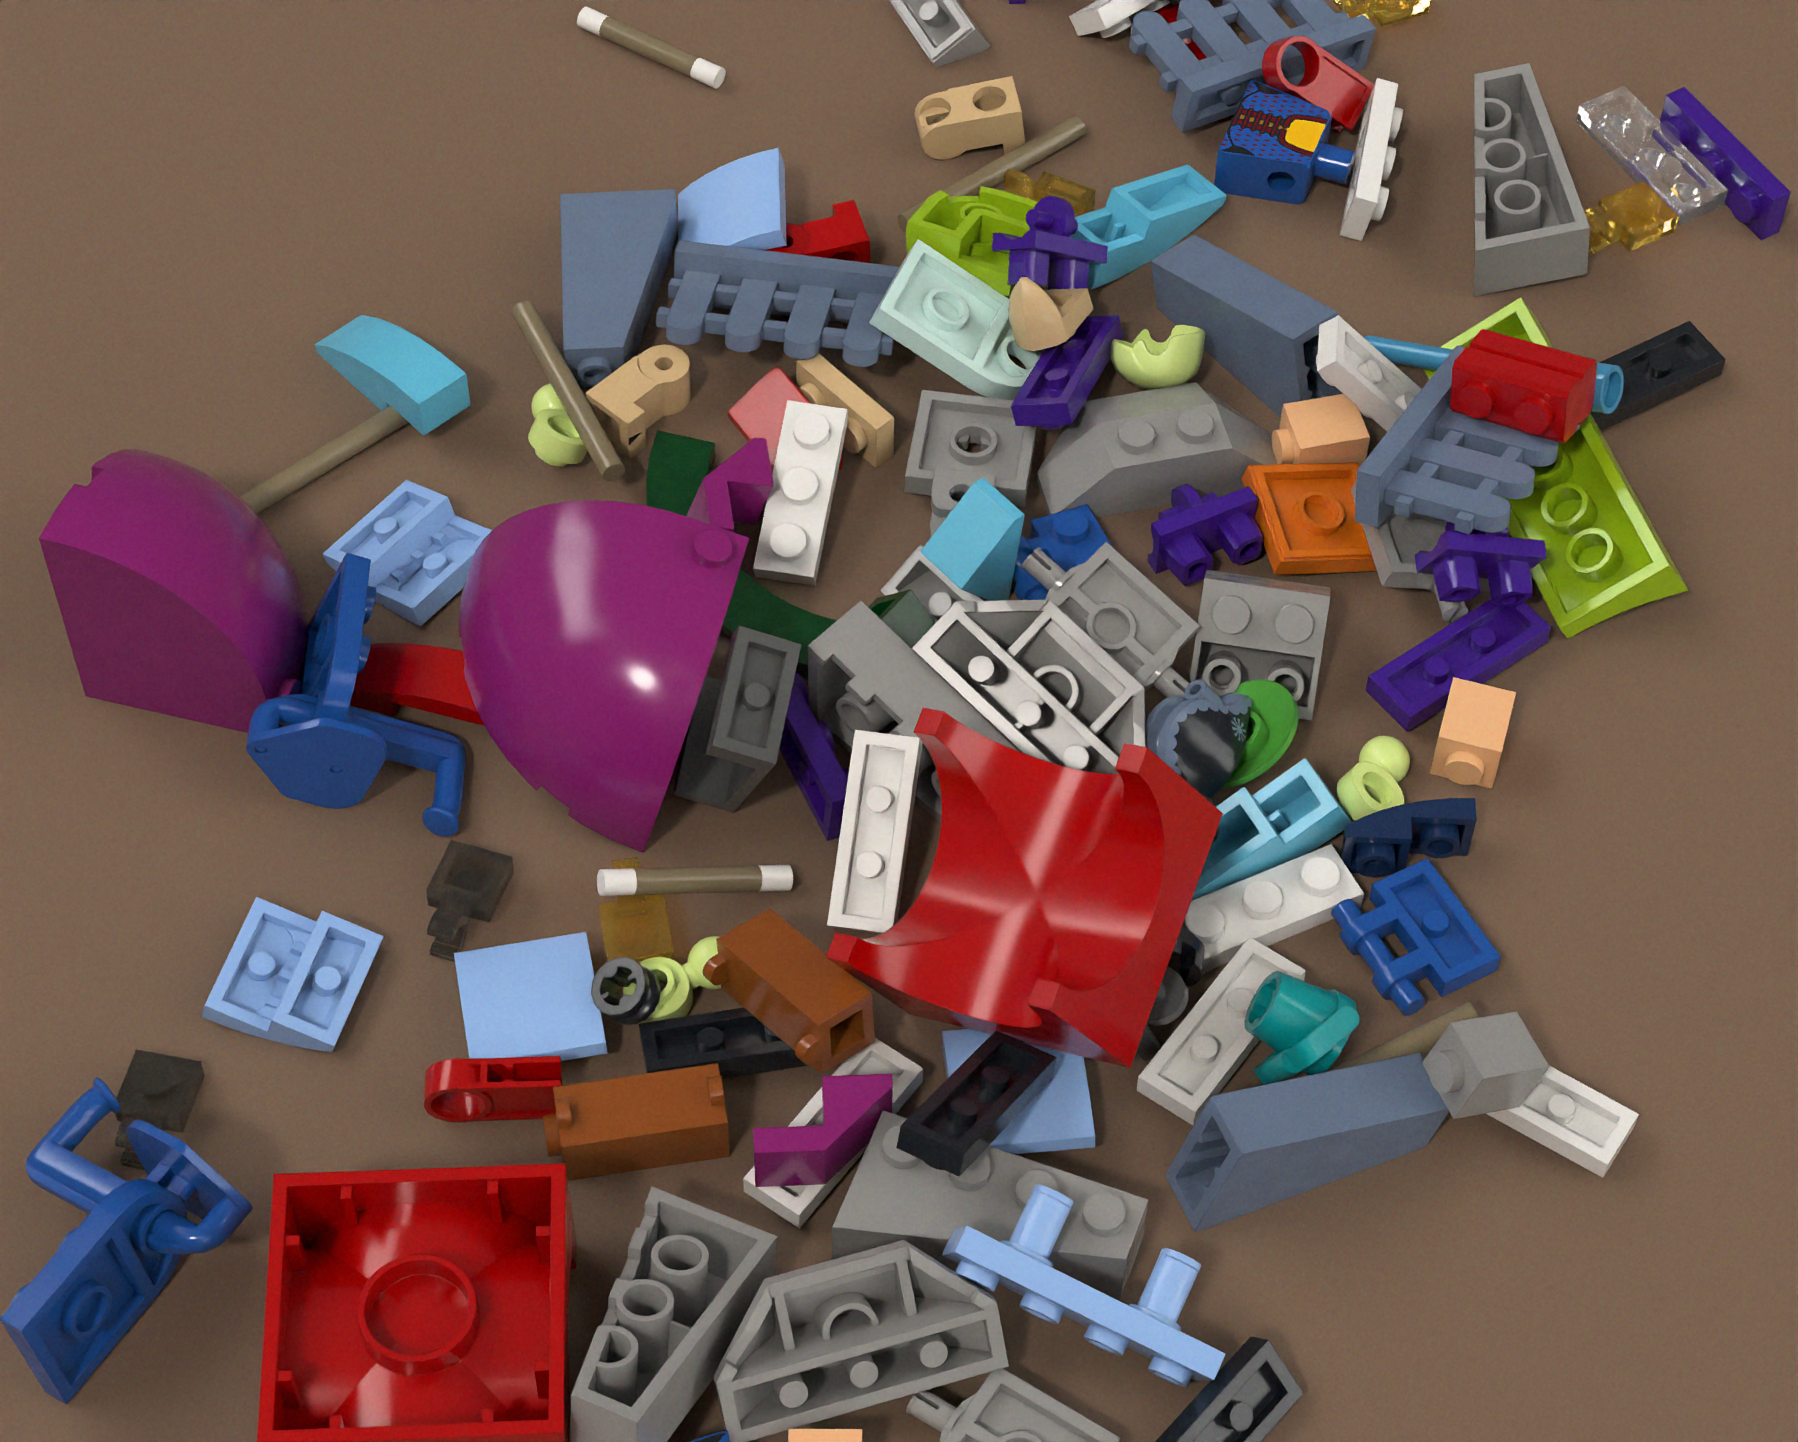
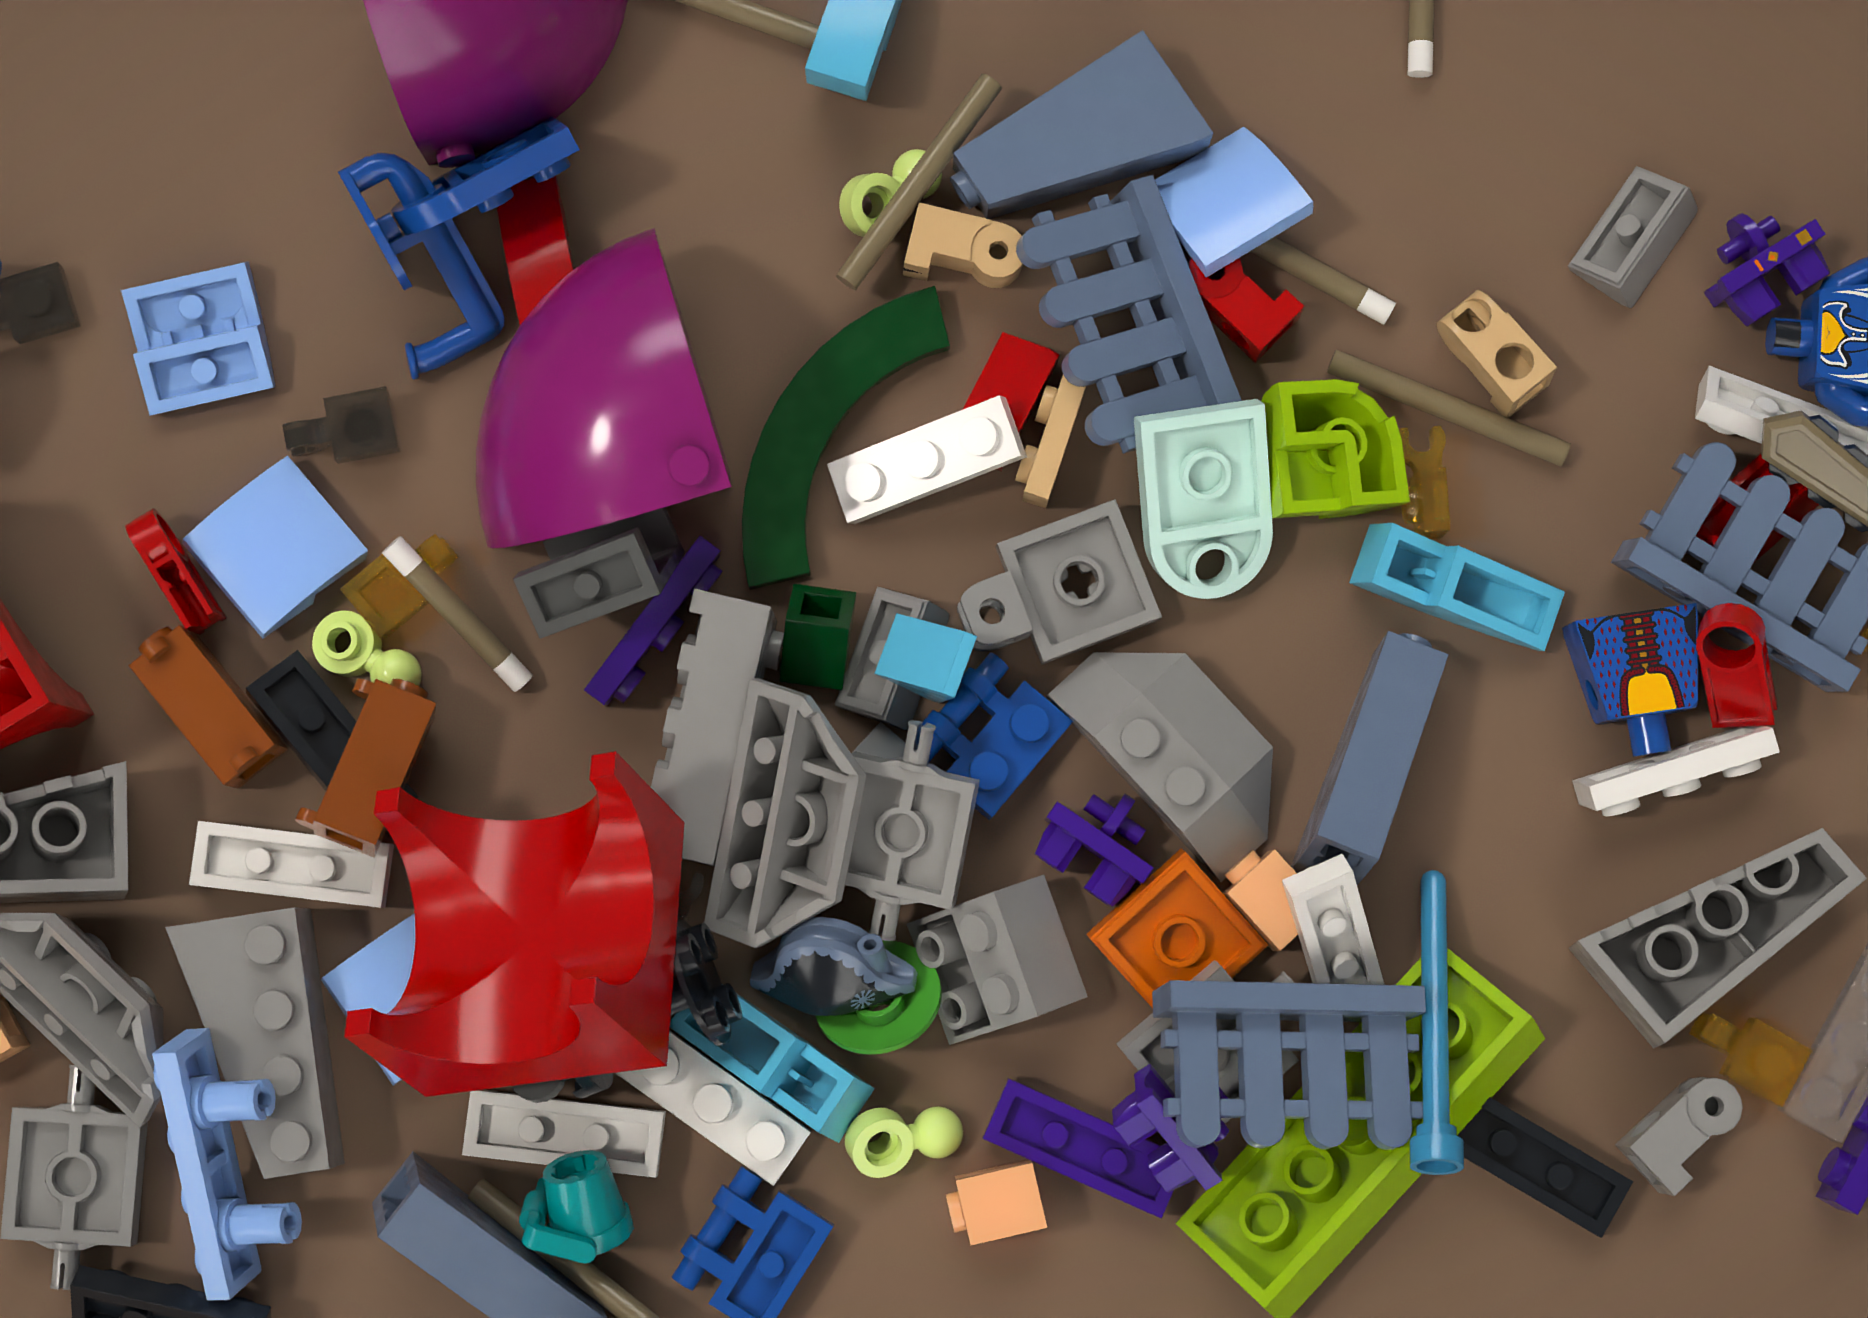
camera: 60 degrees right, 30 degrees up
(415, 551) = (679, 155): light blue slope -> none
(621, 973) = (296, 615): black bush -> none
(735, 488) = (894, 403): magenta slope -> none
(819, 1152) = (274, 878): magenta slope -> none
(856, 190) = (1326, 279): none -> dark tan bar
(874, 832) = (562, 745): white plate -> none
(976, 1103) = (313, 983): black plate -> none
(1046, 316) = (1258, 573): tan plate -> none
(1050, 246) = (1334, 529): dark purple hips -> none
(1066, 375) = (1210, 623): dark purple plate -> none
(1159, 364) = (1285, 696): yellowish green hair -> none
(1383, 840) = (836, 1182): dark blue slope -> none
(1523, 385) = (1377, 1083): red brick -> none
(1663, 282) = (1678, 1129): none -> light grey leg

